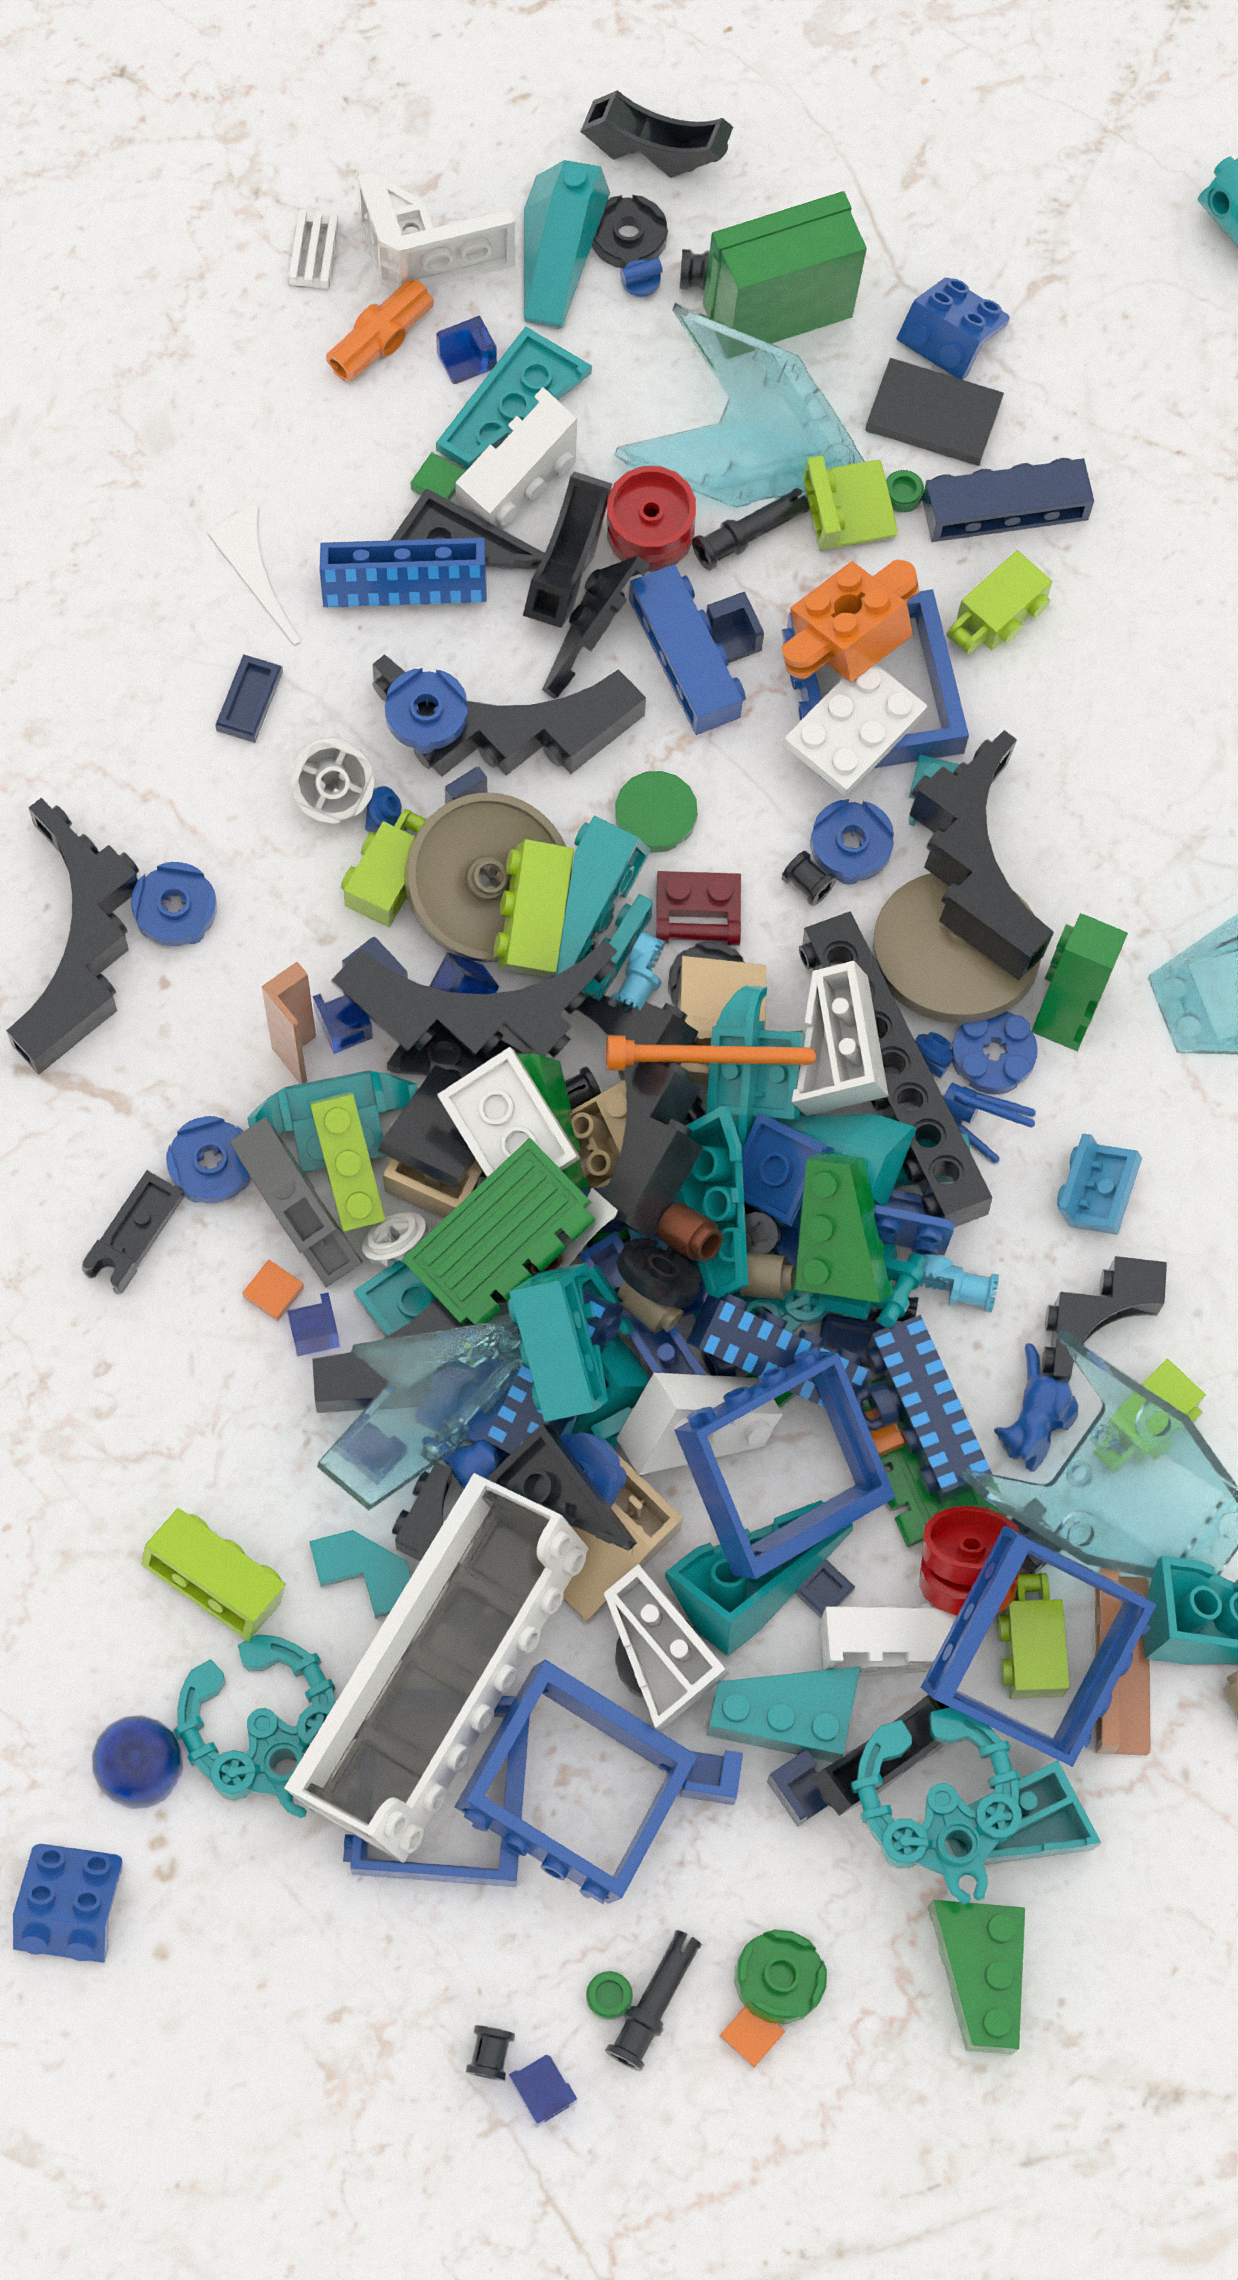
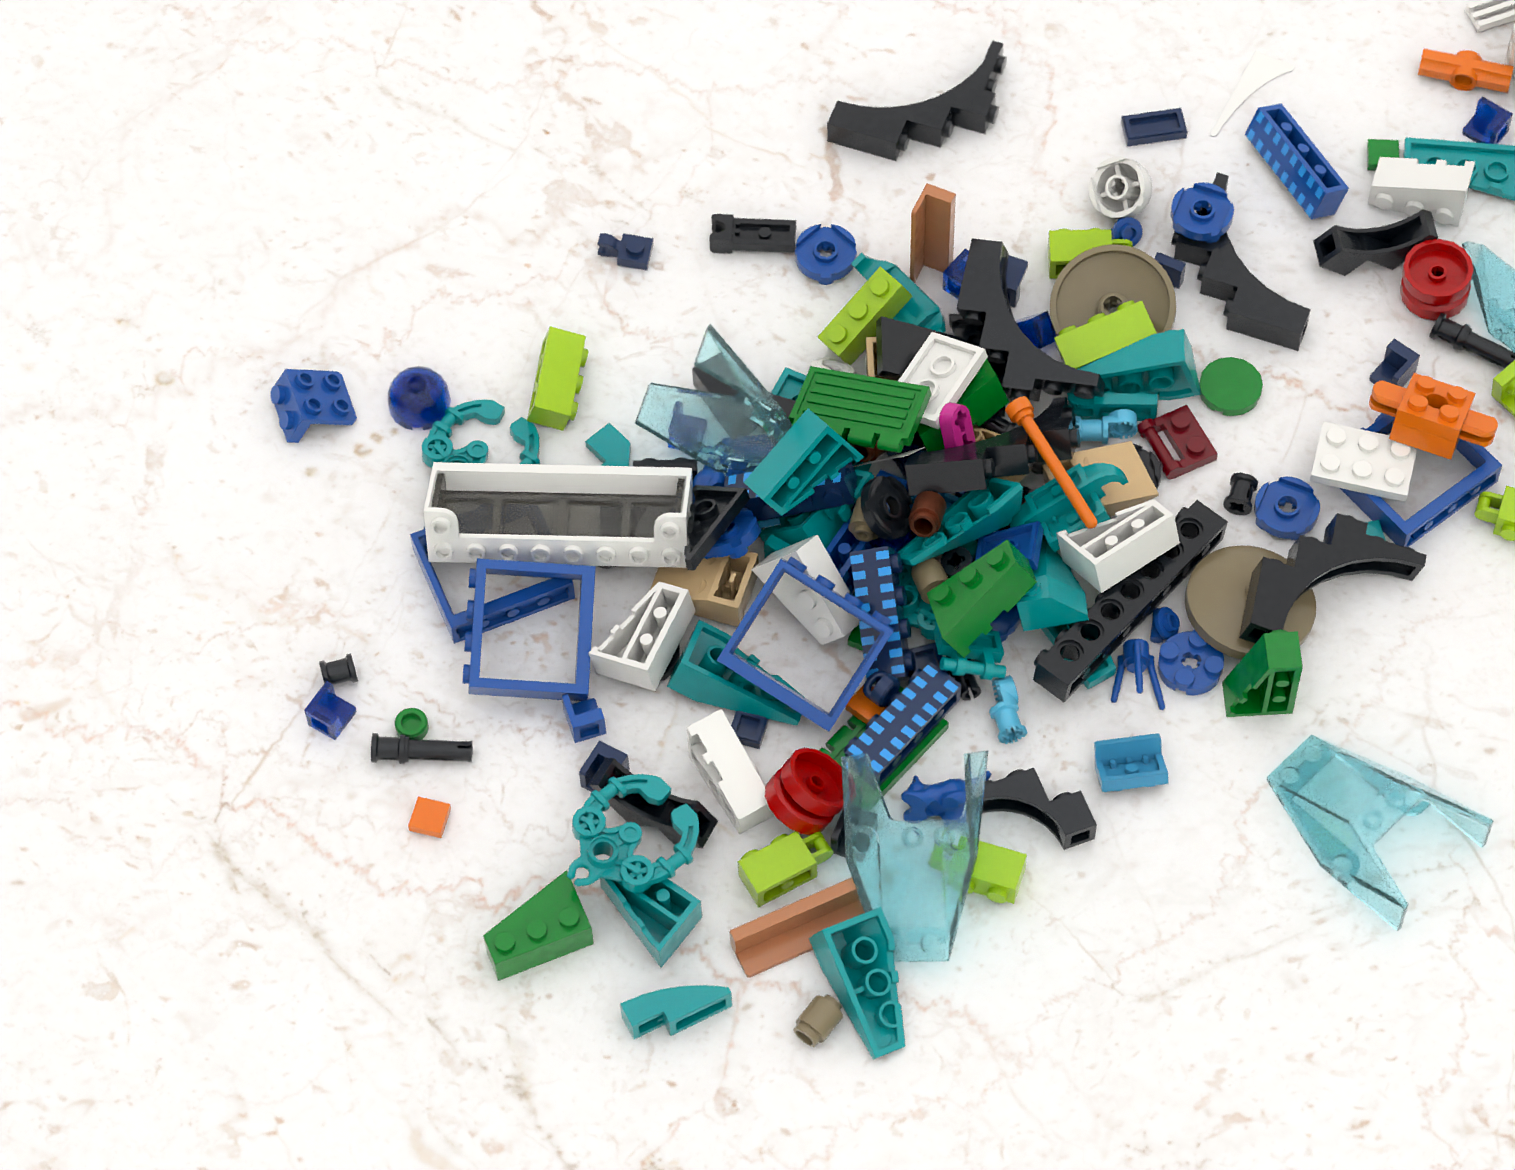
camera: 70 degrees right, 10 degrees down
(65, 1389) = (630, 252): none -> dark blue plate
(179, 927) = (983, 168): blue plate -> none
(273, 1290) = (762, 328): orange tile -> none
(295, 1202) = (819, 303): dark grey slope -> none
(314, 1327) = (755, 358): clear blue panel -> none
(442, 519) = (1353, 168): black wing -> none
(590, 1139) = (956, 425): none -> dark pink beam
(592, 618) = (1336, 281): black wing -> none
(686, 649) = (1358, 346): brick -> none
(780, 1976) = (474, 814): green tile -> none
(788, 1711) = (651, 736): teal wedge -> none
(906, 1225) = (1023, 650): blue bracket -> none
(976, 1617) = (706, 848): blue window -> none
(1160, 1862) = (674, 1007): none -> teal slope

